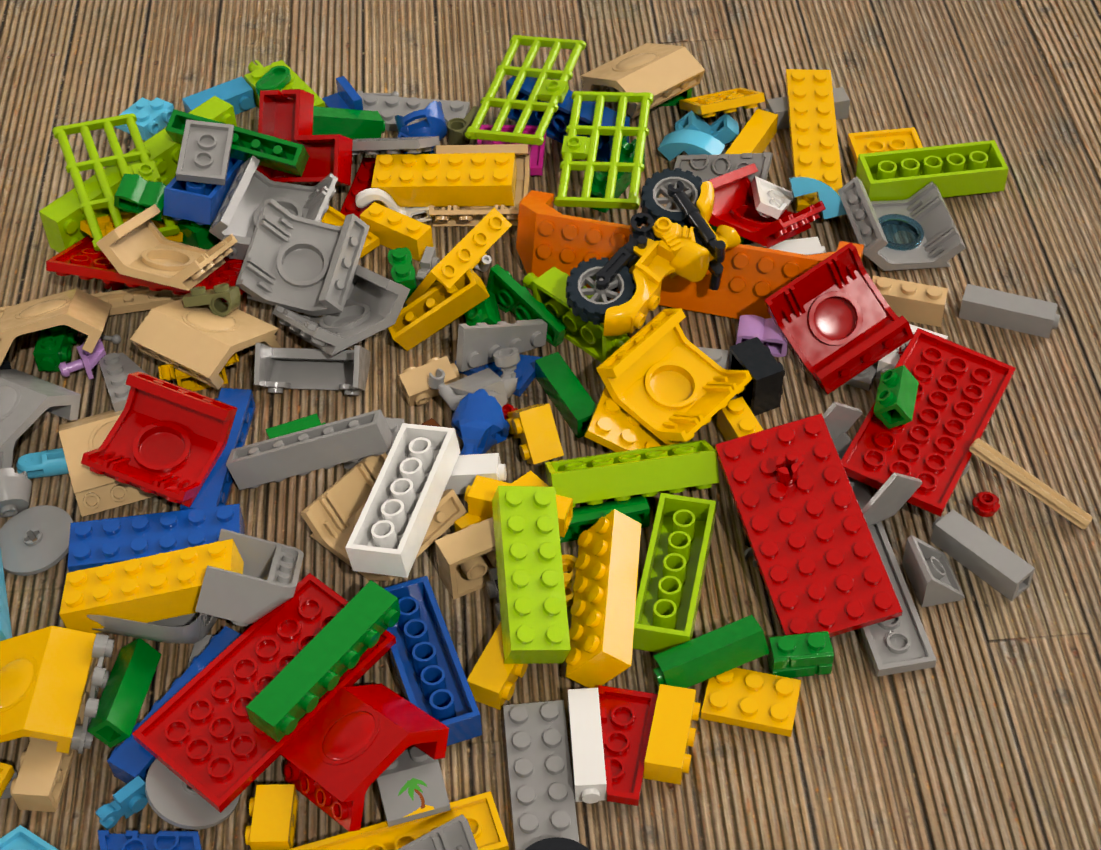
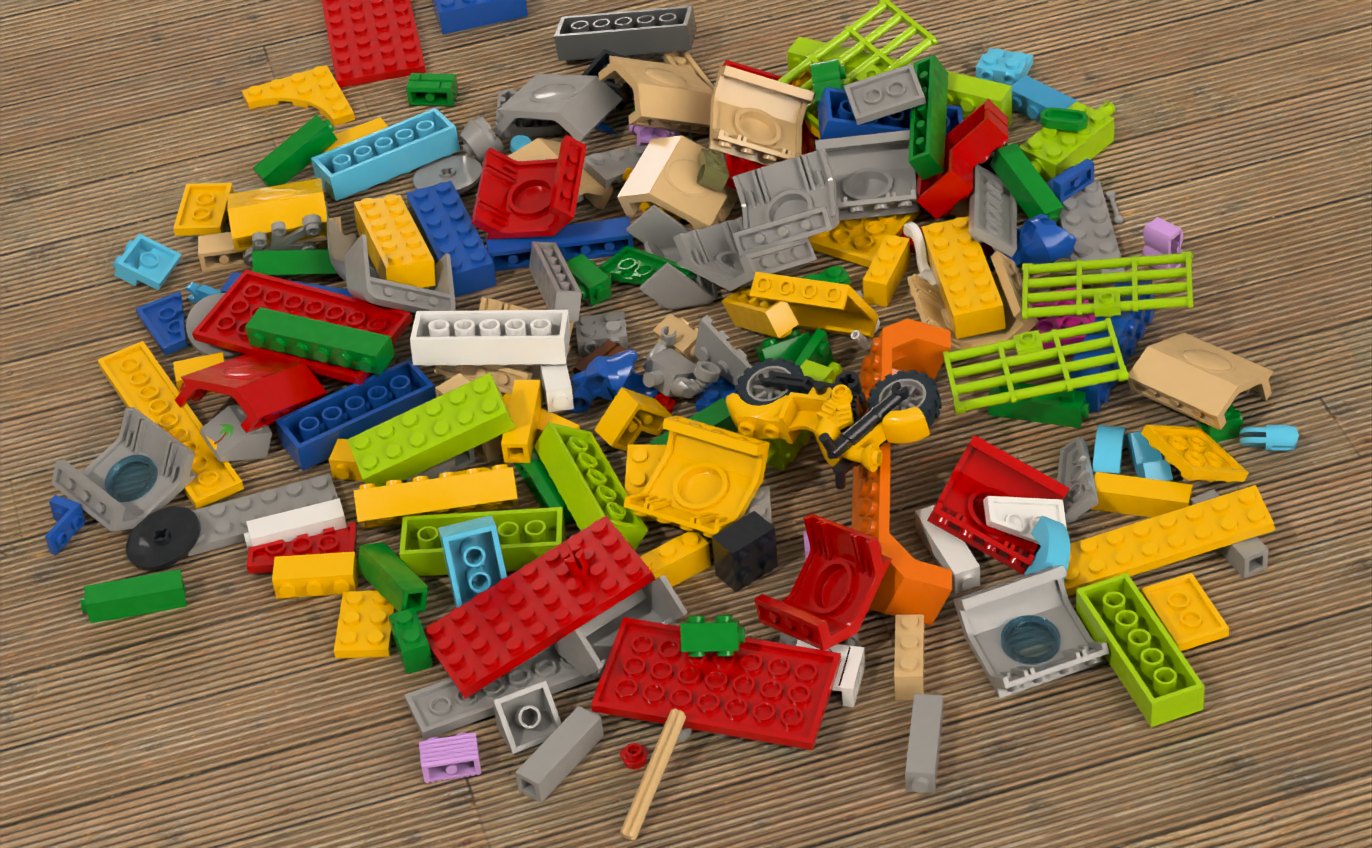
camera: 80 degrees right, 5 degrees down
(306, 390) = (637, 266): none -> green wing
(461, 68) = (1162, 239): none -> lavender brick
(710, 62) = (1270, 437): none -> medium azure arm
(729, 569) = (472, 557): none -> medium azure brick
(971, 642) = (449, 757): none -> lavender brick

